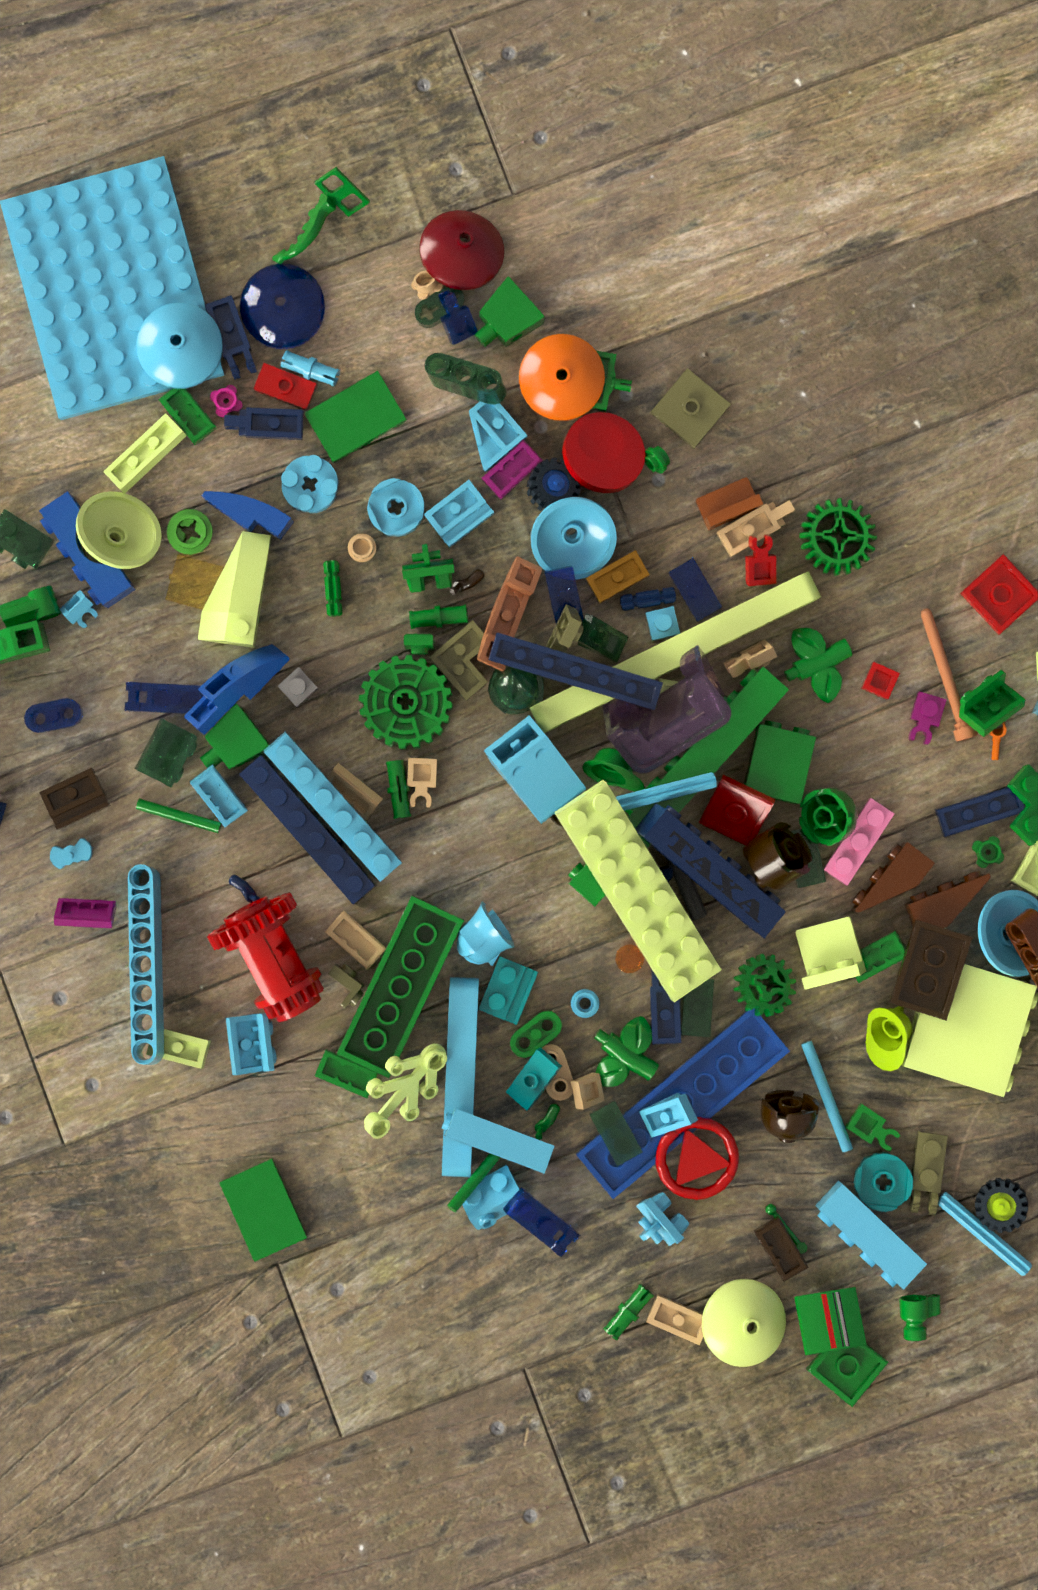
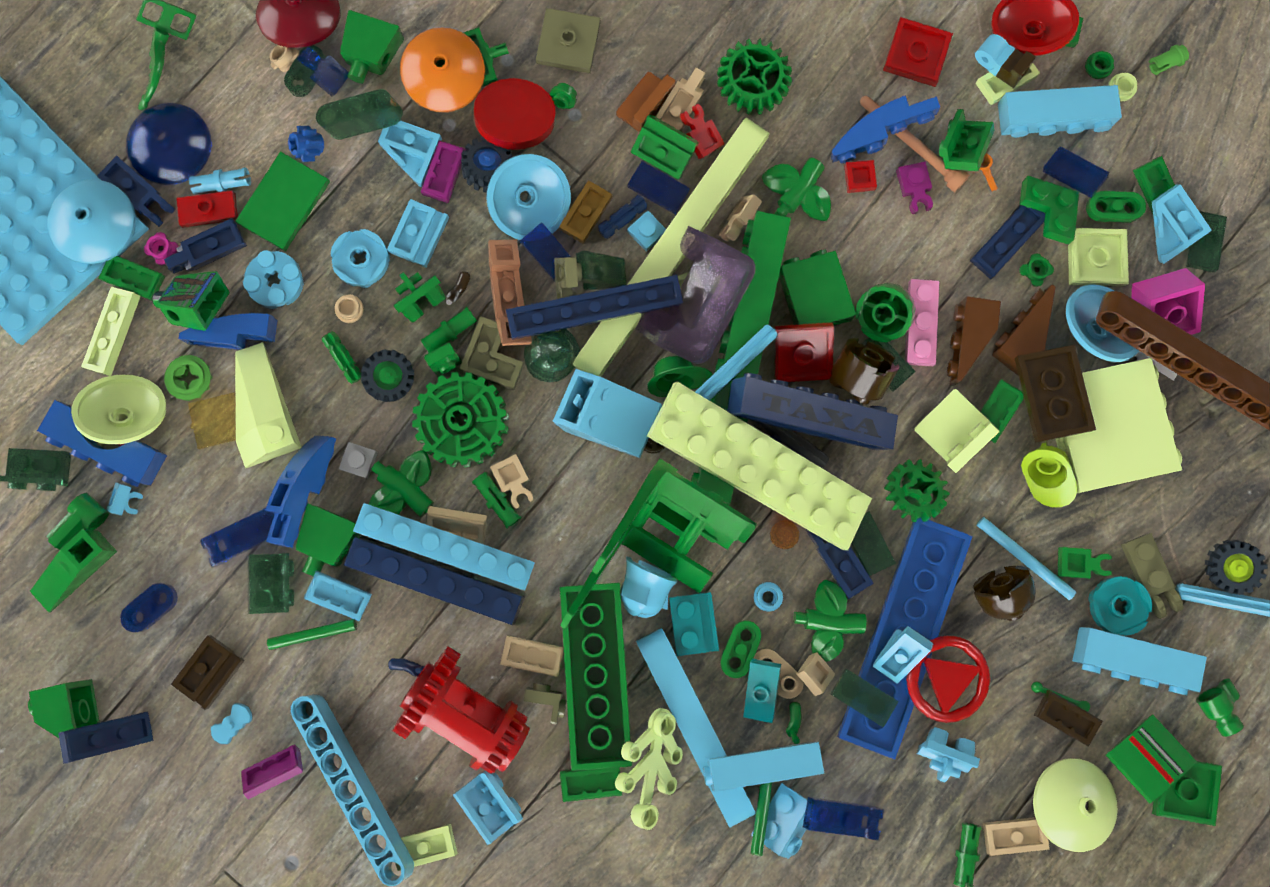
camera: 30 degrees left, 5 degrees down
(230, 467) = (192, 299): none -> green torso
(325, 731) = (403, 485): none -> green plant
(363, 628) = (387, 375): none -> black wheel
(404, 377) = (306, 143): none -> blue gear
(549, 888) = (682, 510): none -> green piece
(720, 557) = (664, 147): none -> green plate
(910, 648) = (872, 130): none -> blue slope

